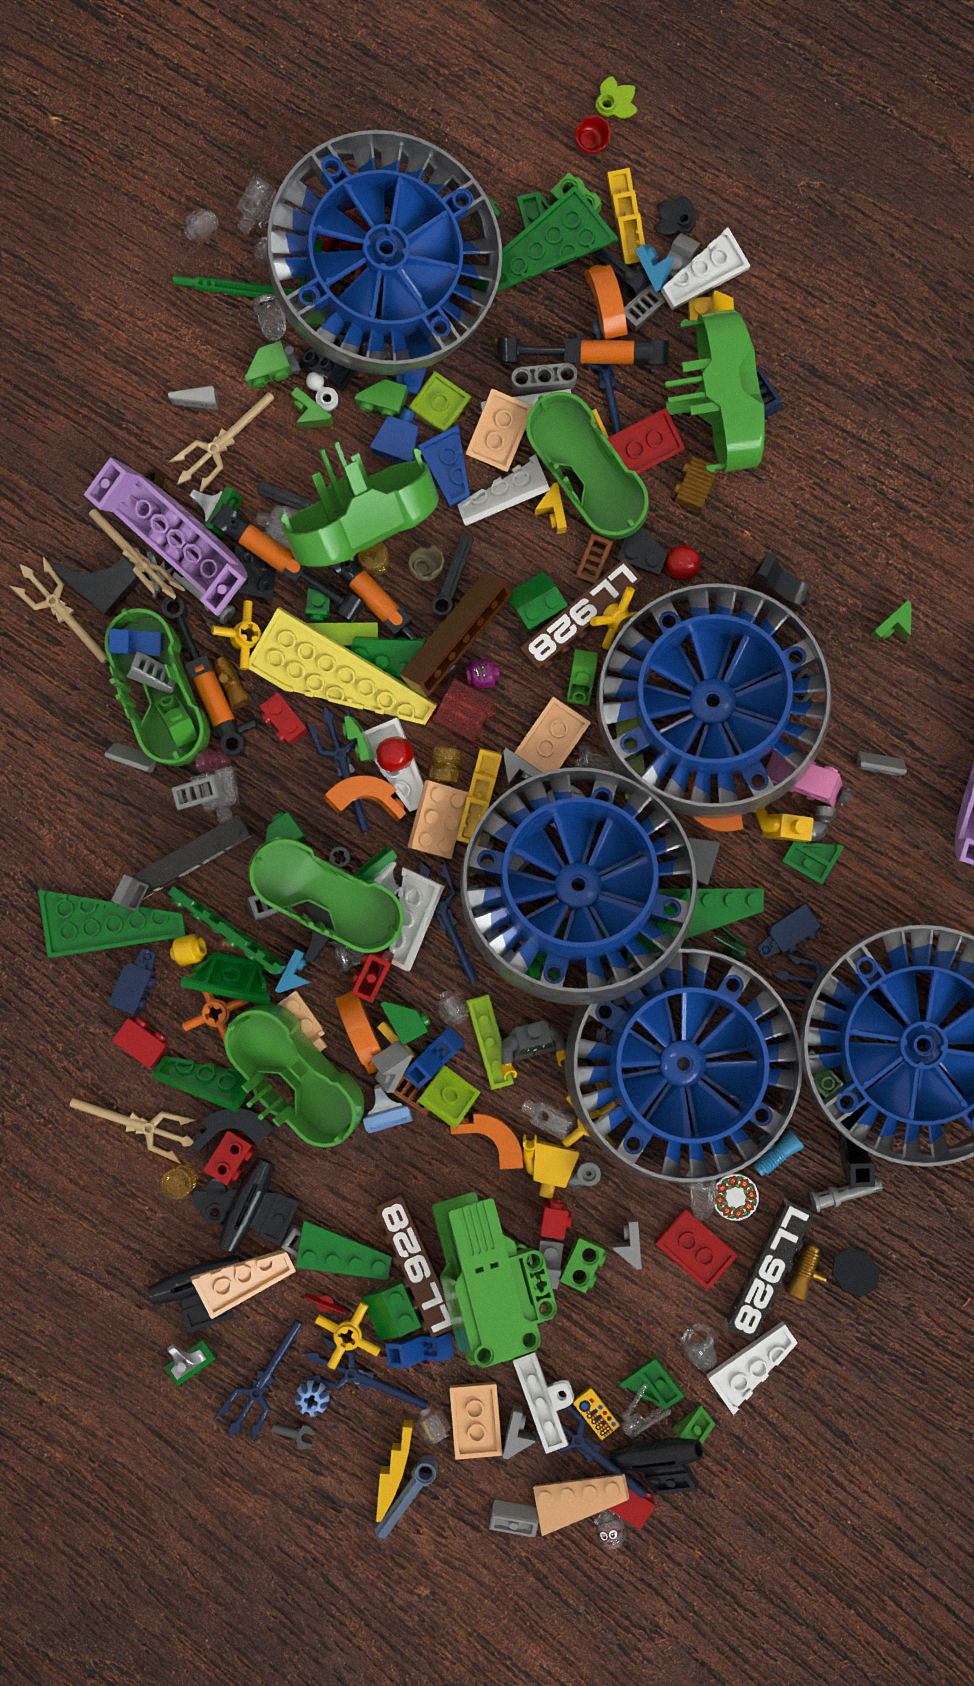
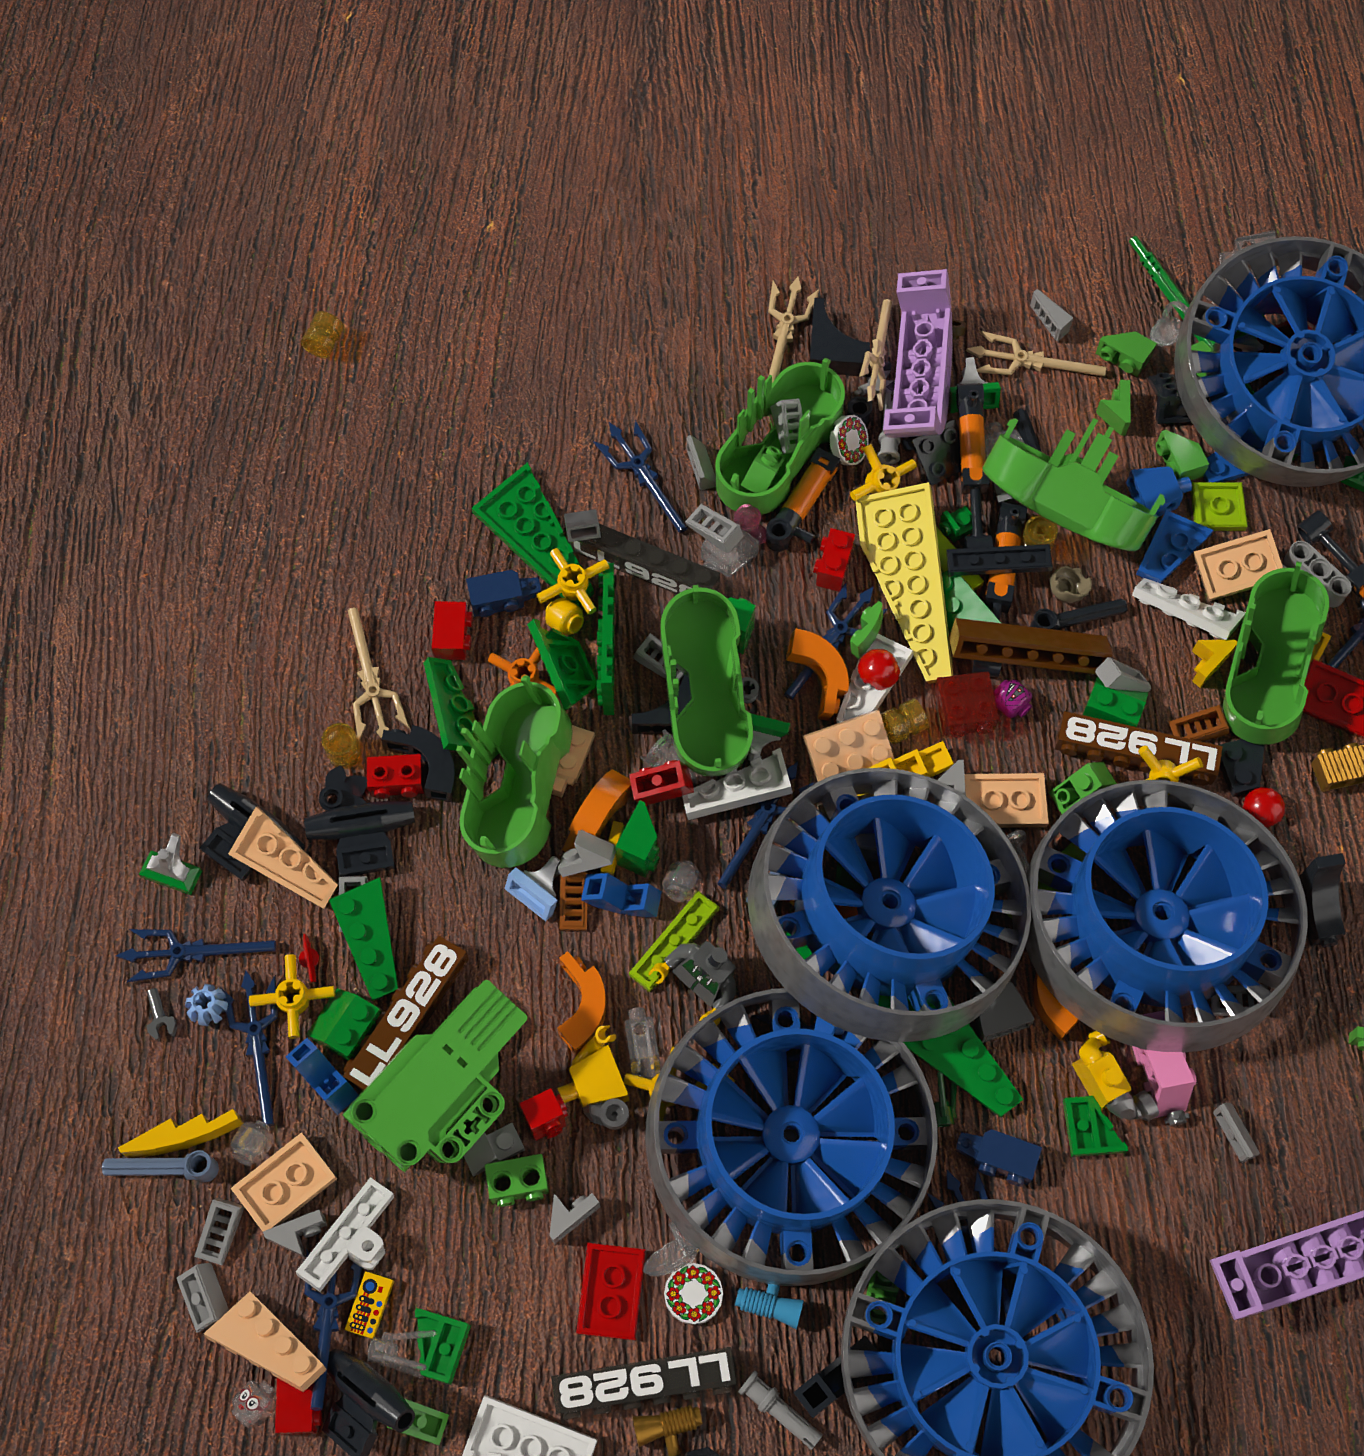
camera: 55 degrees right, 20 degrees down
(104, 806) = (642, 471): none -> dark blue piece
(132, 641) = (800, 385): blue brick -> none
(158, 927) = (565, 582): none -> yellow bar
(194, 635) = (849, 439): none -> tile
(201, 225) = (1195, 229): clear head -> none
(230, 681) = (831, 498): pearl gold piece -> none
(290, 978) = (601, 718): dark azure slope -> none
(292, 360) = (1150, 363): dark grey bar -> none
(316, 382) = (1146, 397): white plate -> none
(373, 602) = (999, 560): none -> black tile
(449, 1096) = (594, 934): lime tile -> none
(468, 1469) = (213, 1215): none -> light grey slope
(522, 588) = (1121, 676): none -> light grey slope
(700, 1354) = (508, 1366): clear piece -> none

